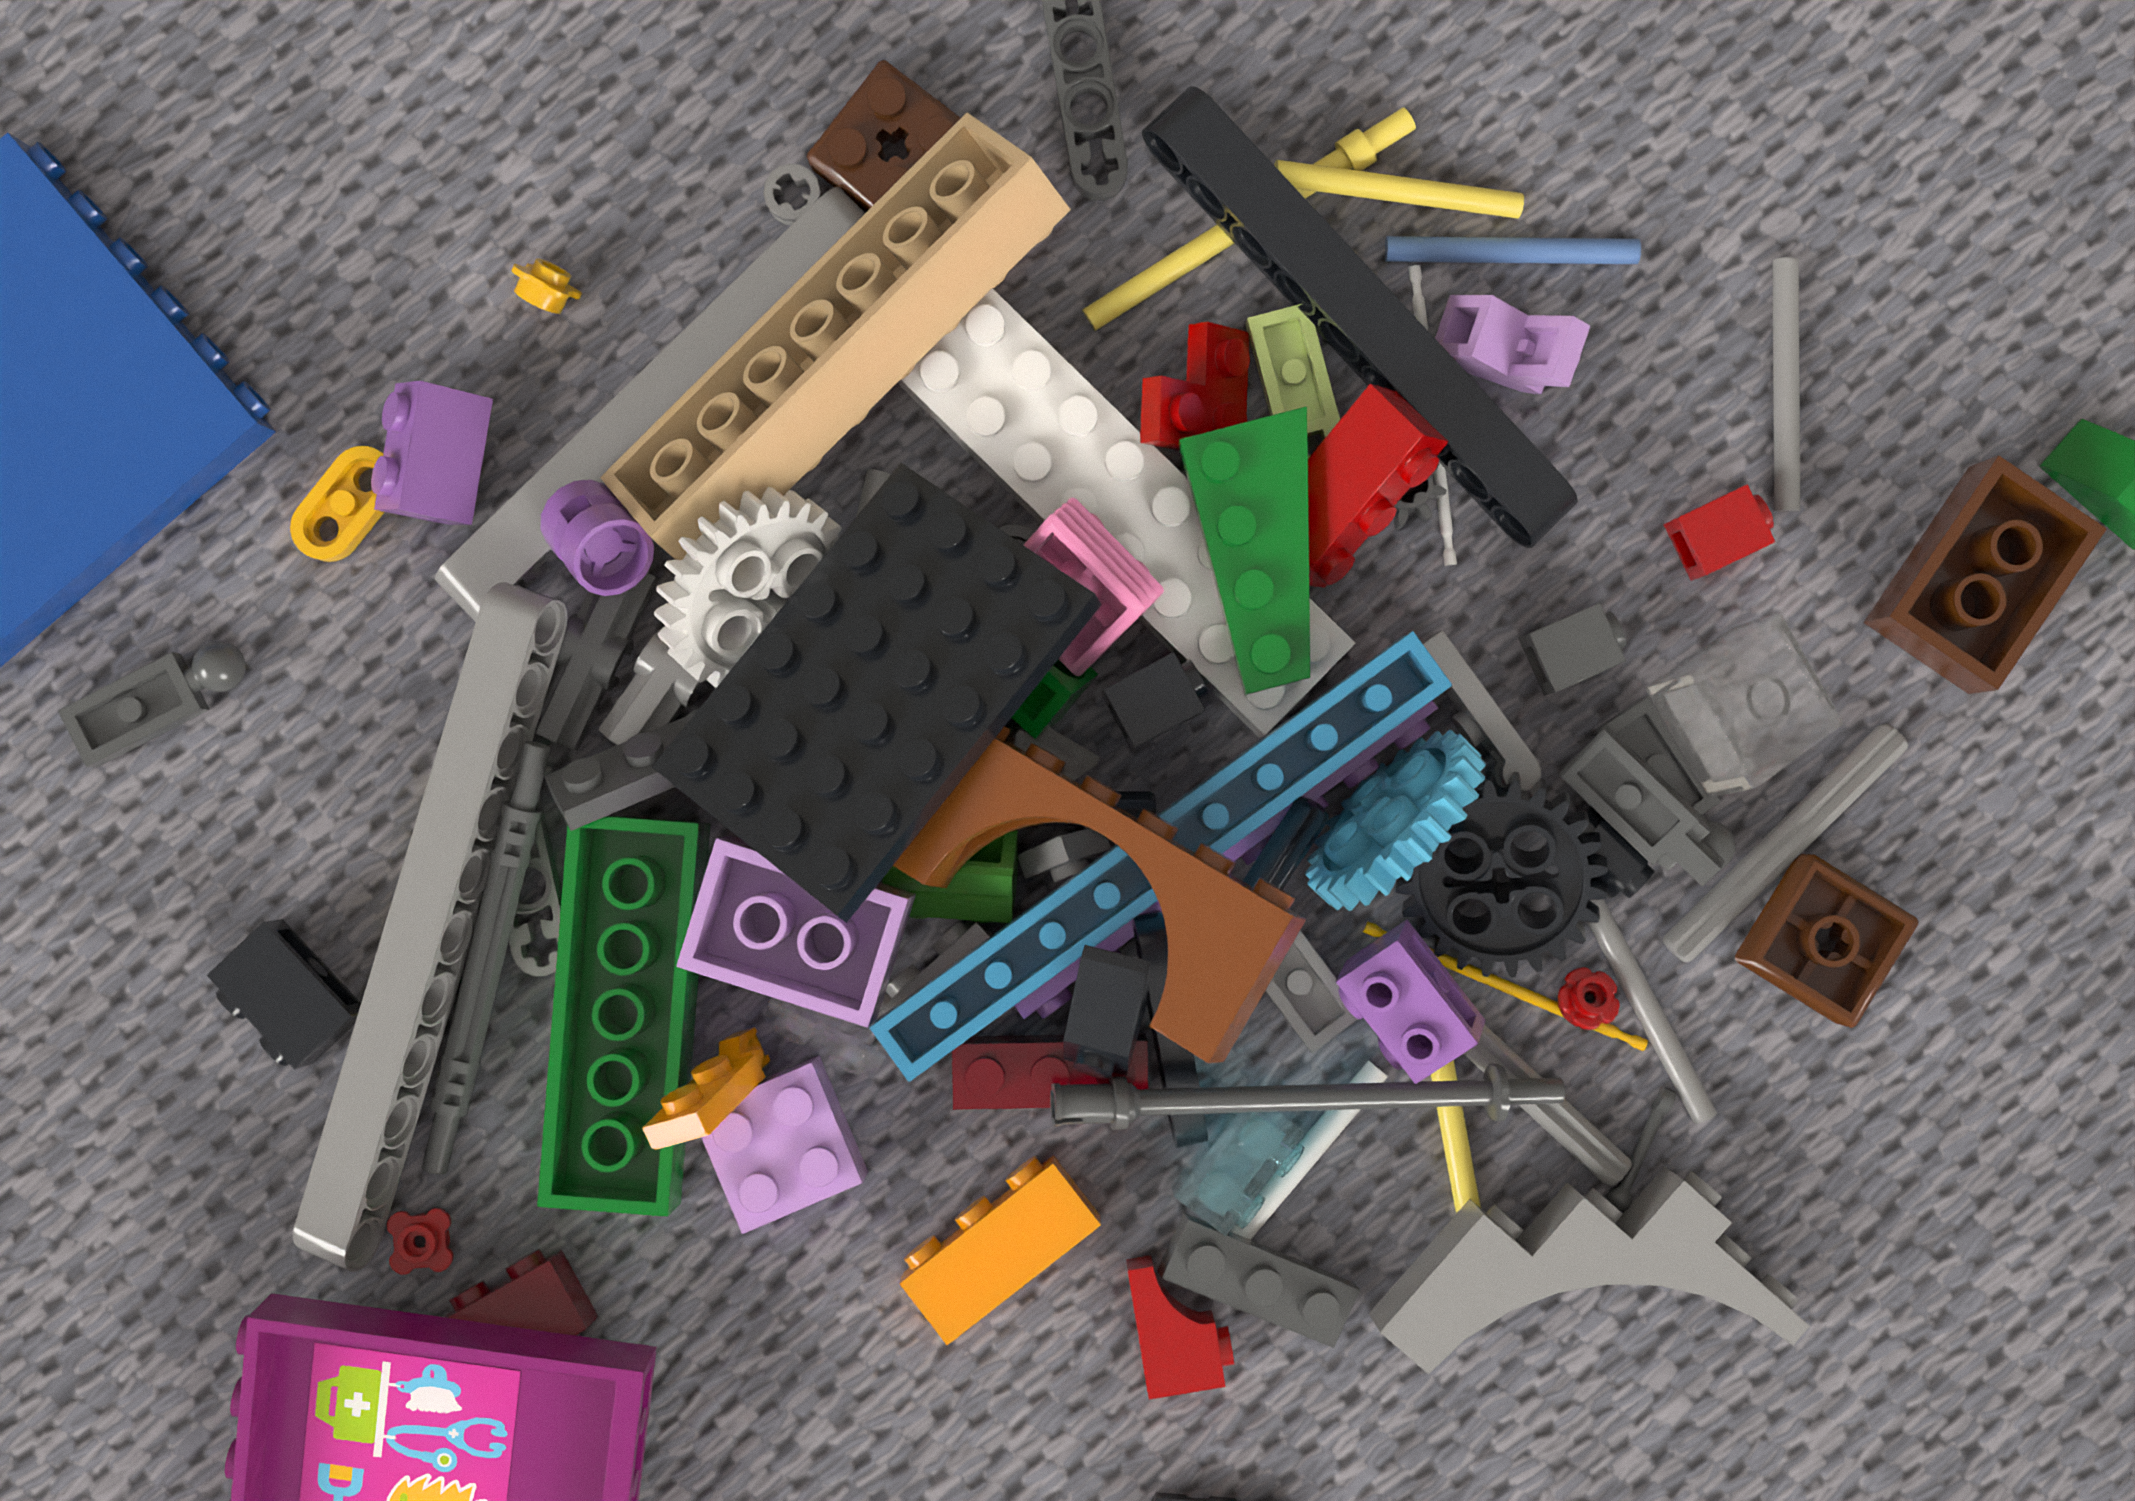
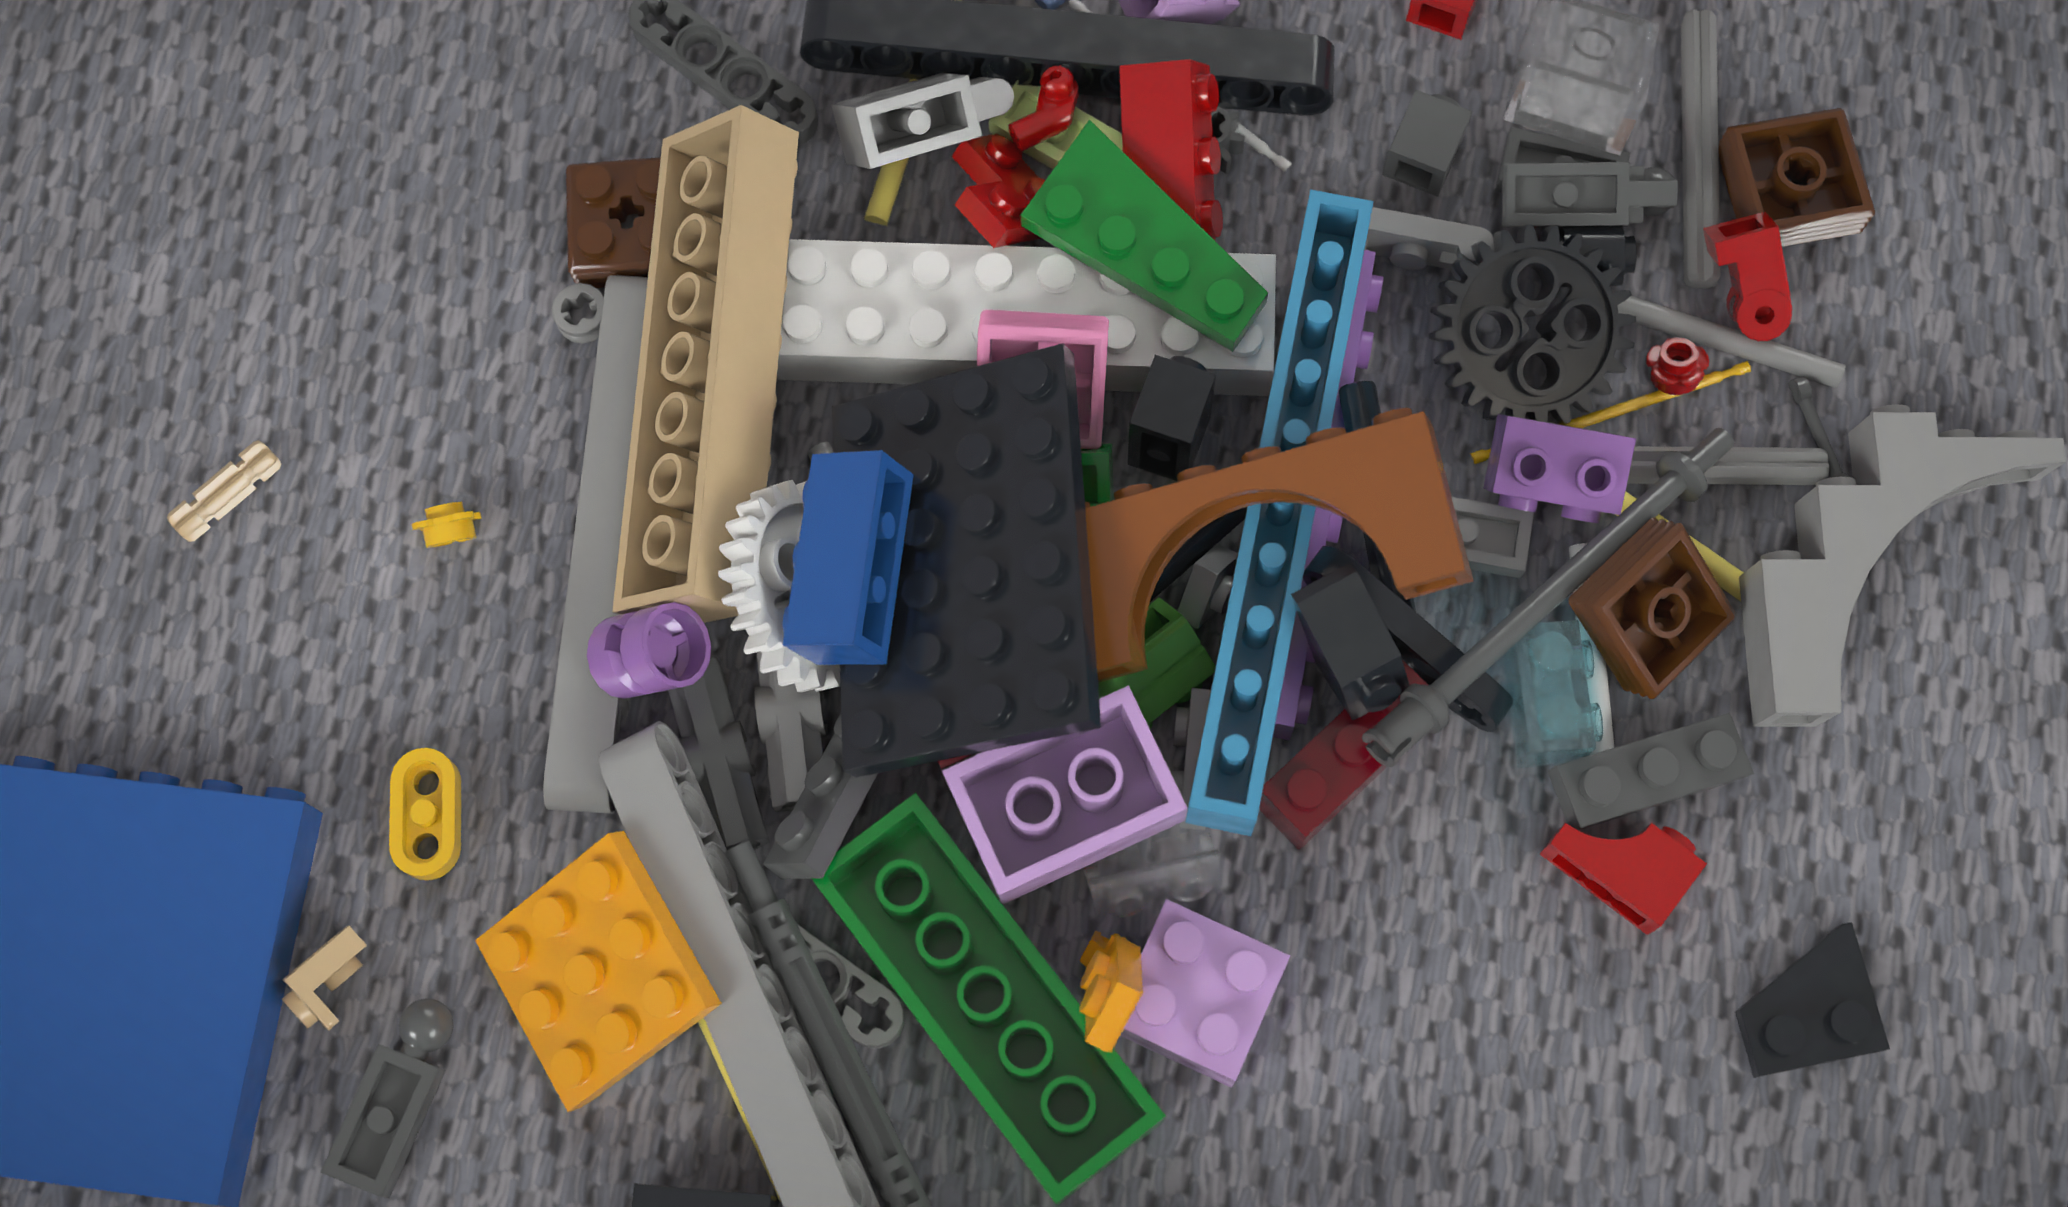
camera: 40 degrees left, 15 degrees down
(179, 558) = (328, 965): none -> tan bracket
(365, 743) = (597, 971): none -> light orange plate
(402, 101) = (224, 491): none -> tan axle
(431, 453) = (464, 711): medium lavender brick -> none
(786, 614) = (848, 558): none -> blue brick
(998, 1247) = (1437, 923): light orange brick -> none
(1185, 273) = (917, 117): none -> light grey brick
(1301, 359) = (1053, 110): none -> red arm
(1373, 1170) = (1652, 607): none -> reddish brown brick
(1395, 820) = (1425, 330): medium azure gear -> none
(1703, 1003) = (1758, 275): none -> red leg

